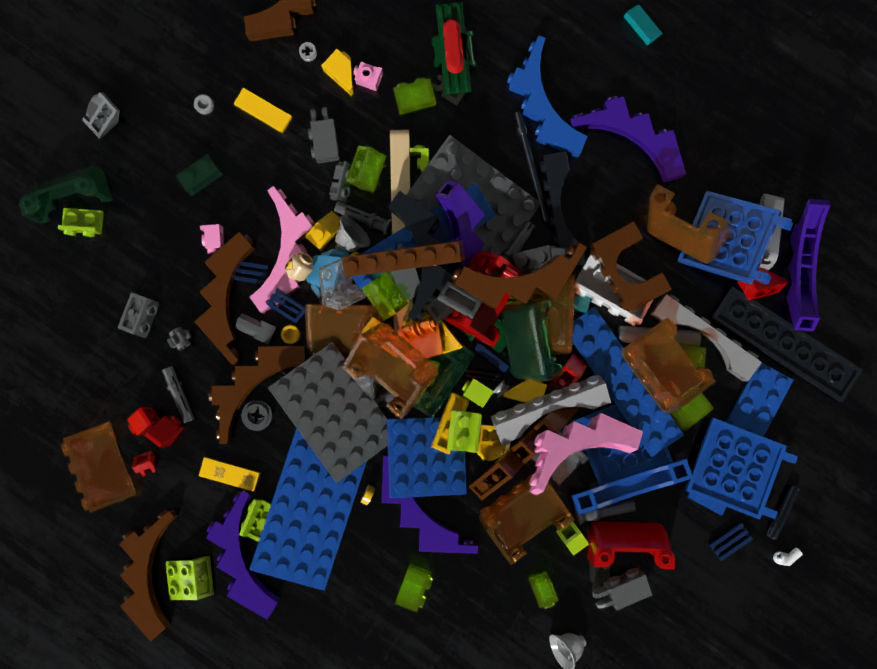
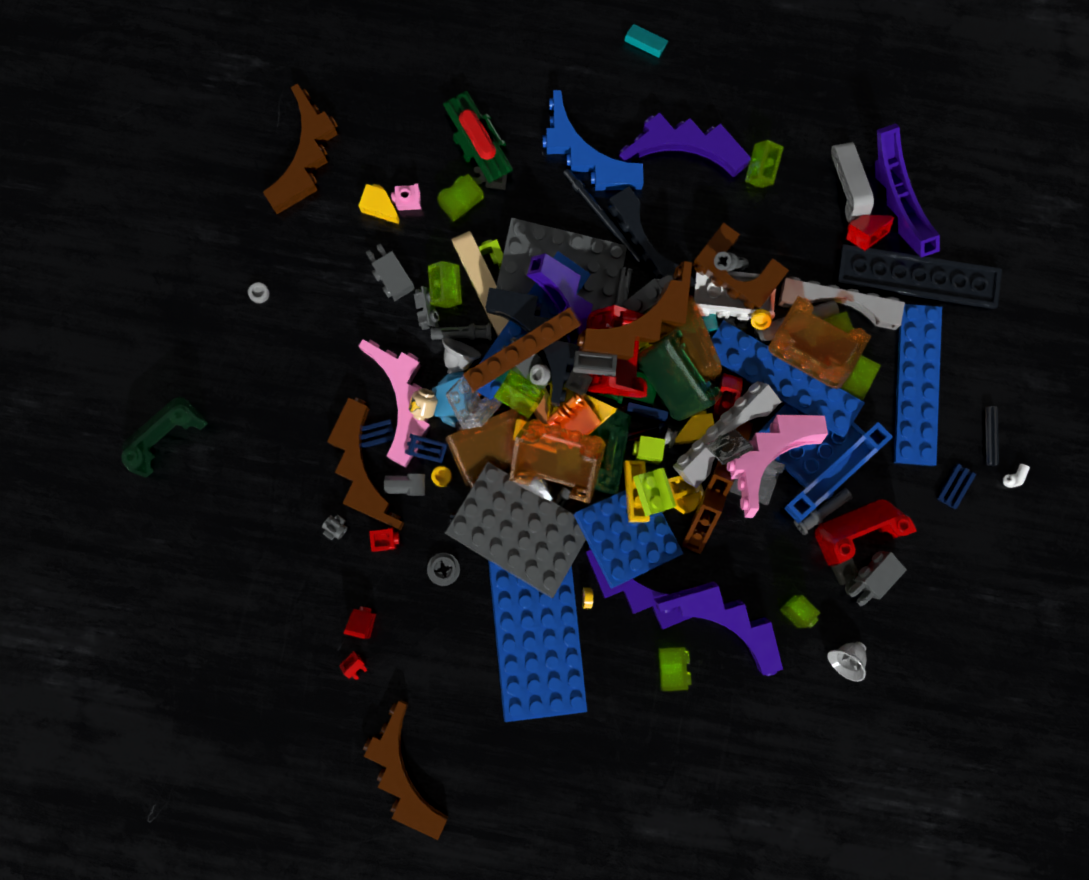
camera: 30 degrees left, 5 degrees down
(81, 221) = (187, 456): lime bracket -> none
(98, 467) = (308, 691): clear orange windscreen -> none
(101, 115) = (162, 345): dark grey slope -> none
(138, 315) = (283, 523): dark grey bracket -> none
(142, 420) = (333, 624): red slope -> none
(178, 394) = (349, 576): dark grey pin -> none
(189, 579) = (447, 761): lime bracket -> none
(199, 175) = (284, 360): clear green brick -> none
(213, 237) = (324, 416): bright pink brick -> none
(217, 368) = (384, 539): none -> red bracket
(229, 474) = (441, 639): yellow tile -> none
(246, 378) = (410, 563): reddish brown arch -> none
(246, 588) = (467, 699): dark purple arch -> none
(255, 519) = (488, 671): lime bracket -> none
(263, 110) = (319, 273): yellow tile -> none
(302, 48) = (343, 204): light grey bush -> none
(324, 231) = (430, 362): yellow slope -> none
(408, 287) = (539, 374): none -> light grey tile
(464, 548) = (707, 603): none -> dark purple arch
(522, 516) = (747, 550): clear orange windscreen -> none
(544, 424) = (729, 446): none -> piece
(573, 538) = (804, 549): lime brick -> none
(623, 258) = (730, 261): none -> dark grey pin
(627, 321) = (761, 319): none -> yellow tile
(695, 183) = (764, 163): none -> clear neon green brick
(698, 243) = (774, 215): clear orange windscreen -> none
(737, 468) = (930, 412): blue plate -> none
(750, 235) = (822, 198): blue plate -> none

